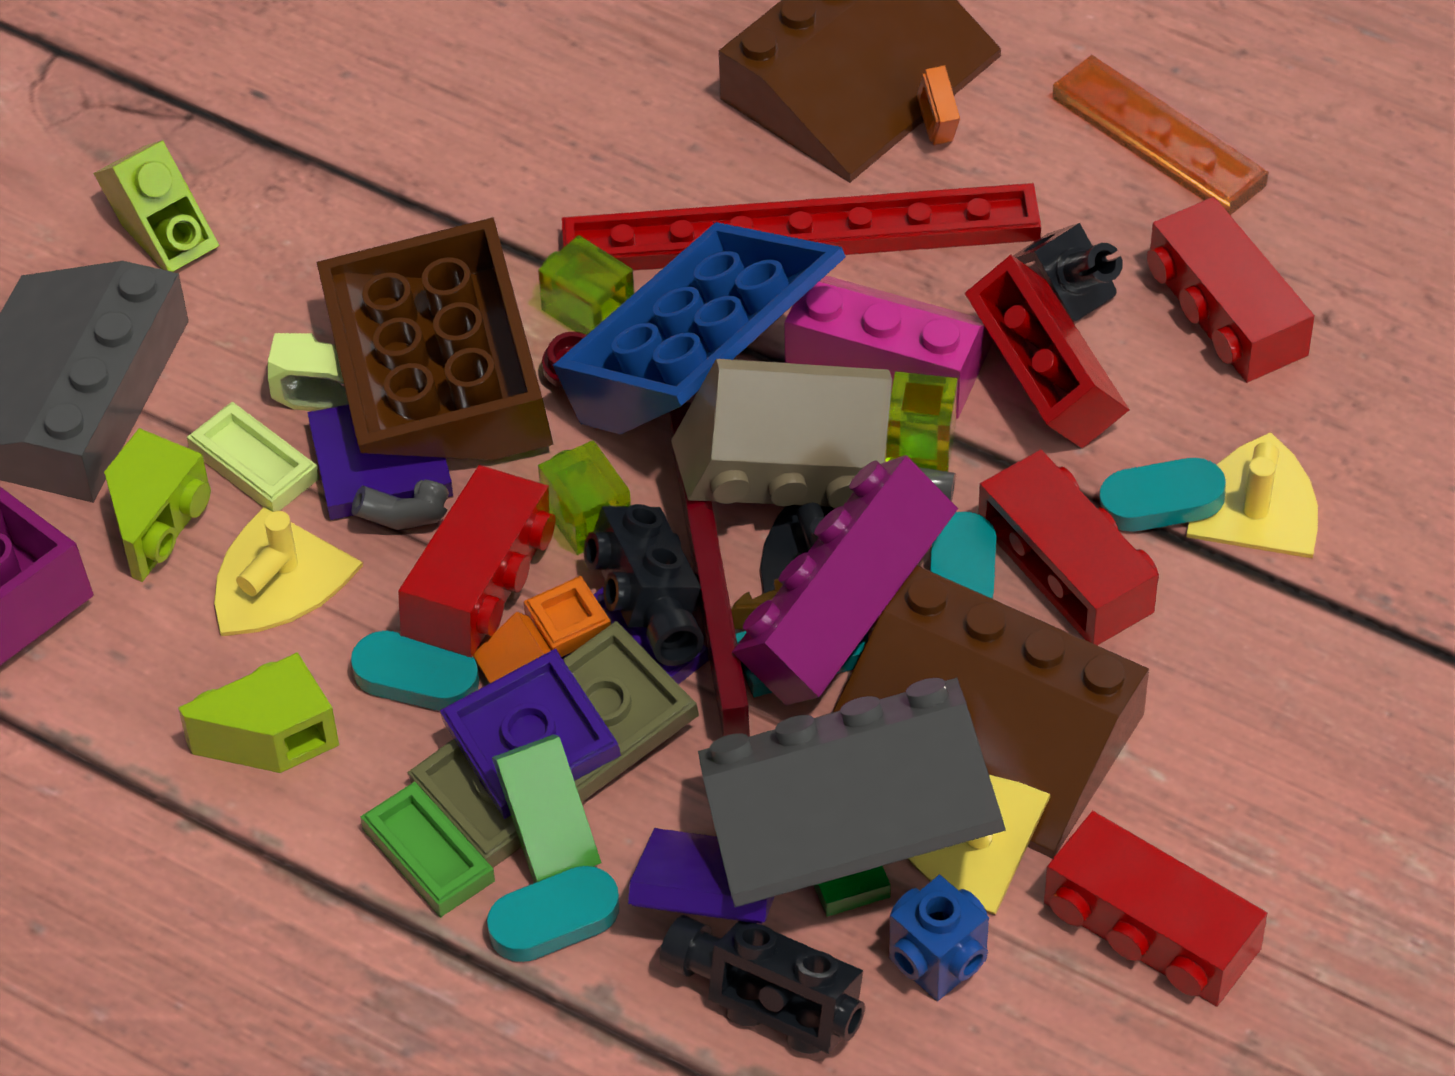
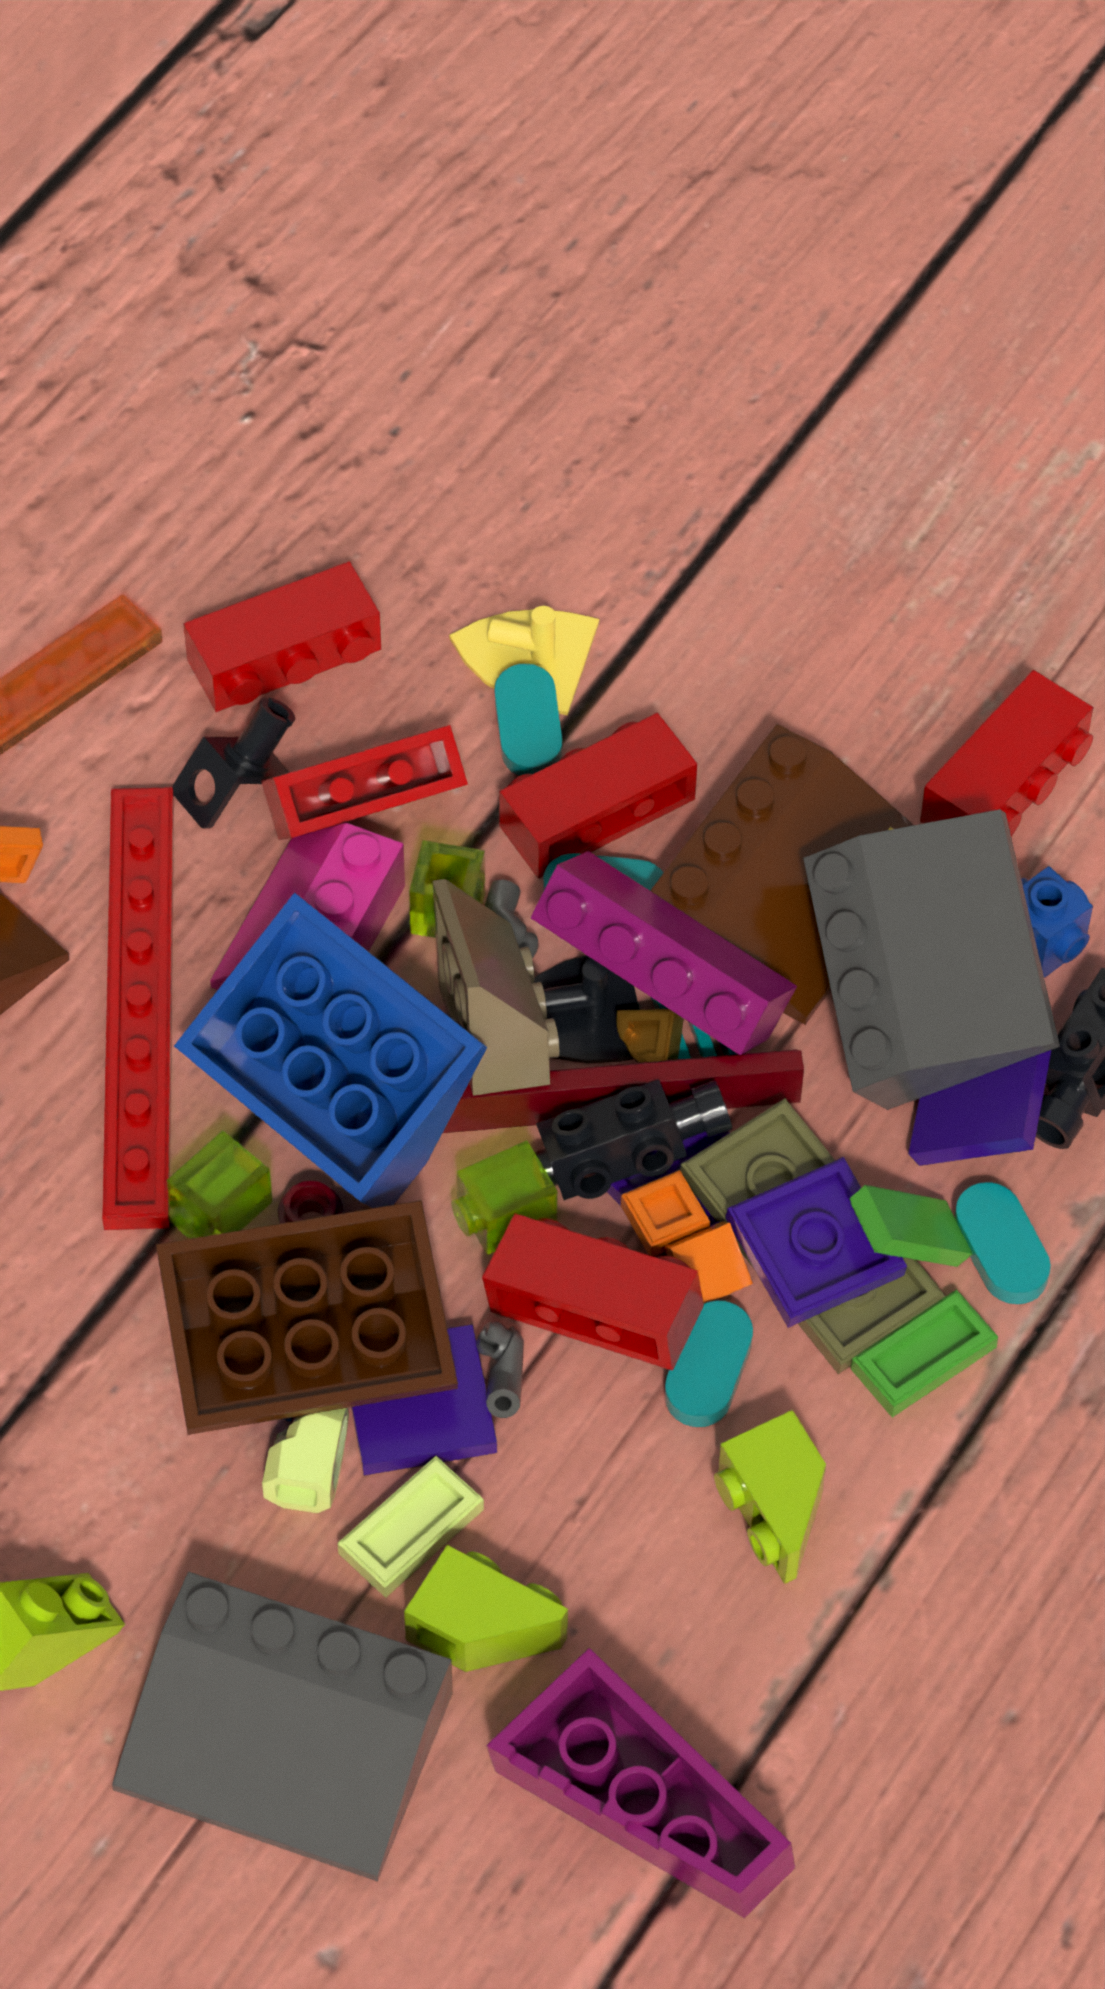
camera: 90 degrees left, 5 degrees up
(277, 575) = (567, 1503): light yellow shield -> none

